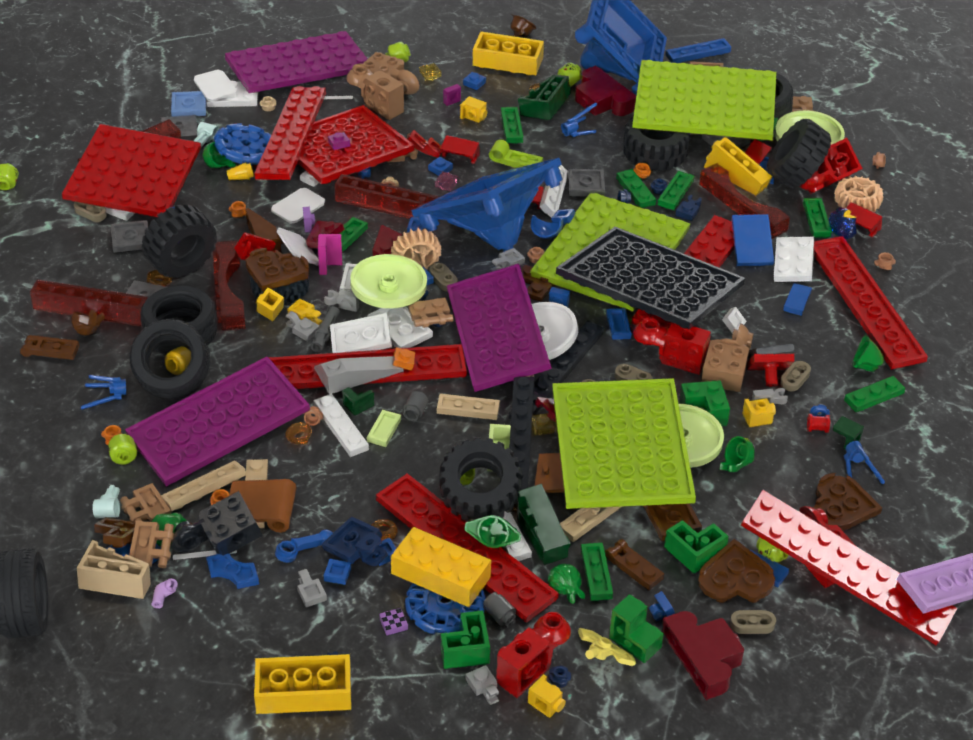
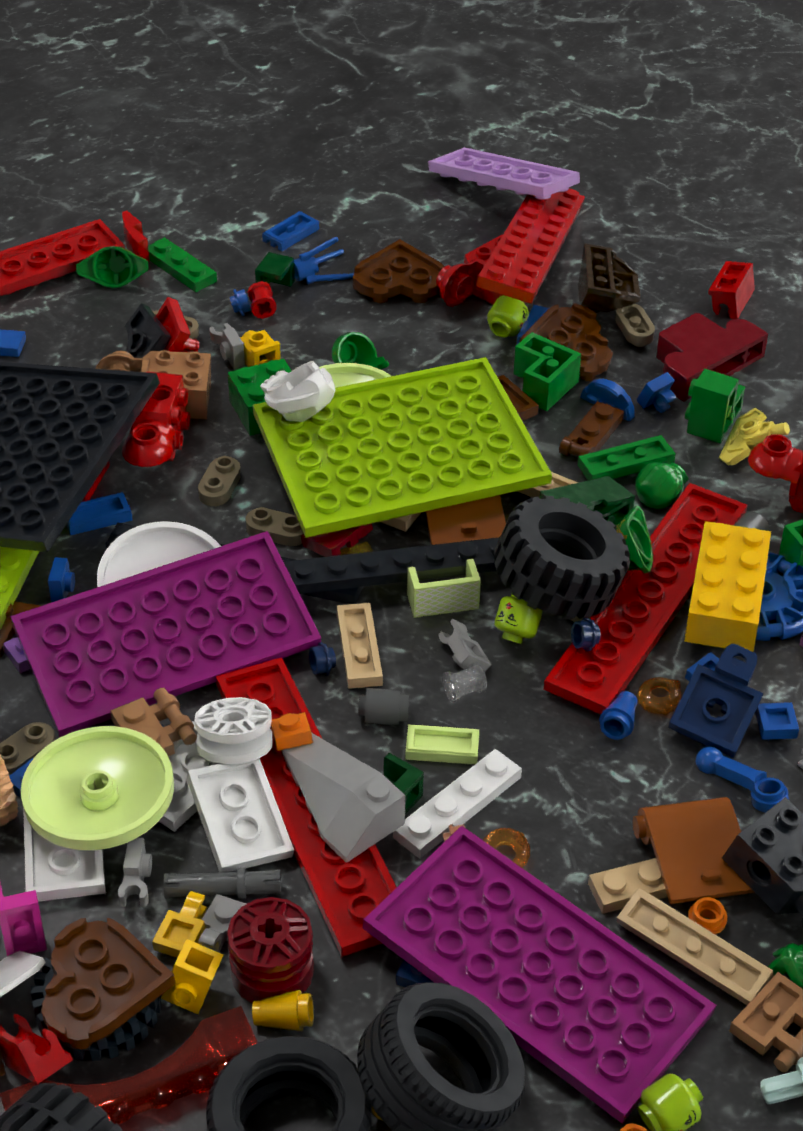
camera: 105 degrees left, 0 degrees up
(241, 337) = (284, 1011): none -> yellow cone
(270, 330) = (270, 949): none -> dark red wheel
(369, 501) = (619, 716): none -> blue cone
(406, 331) = (233, 730): none -> white wheel
(421, 440) = (464, 682): none -> clear bush
(429, 492) = (585, 634): none -> dark blue plate
(441, 447) = (464, 648): none -> light grey plate
(463, 389) = (322, 659): none -> dark blue plate
(657, 391) = (300, 392): none -> white helmet
(666, 580) = (611, 394): none -> blue tile
(785, 695) = (732, 287): none -> red hinge
(796, 605) = (606, 280): none -> dark brown wedge
(907, 369) = (134, 237): none -> red slope
(909, 459) = (291, 231): none -> blue tile

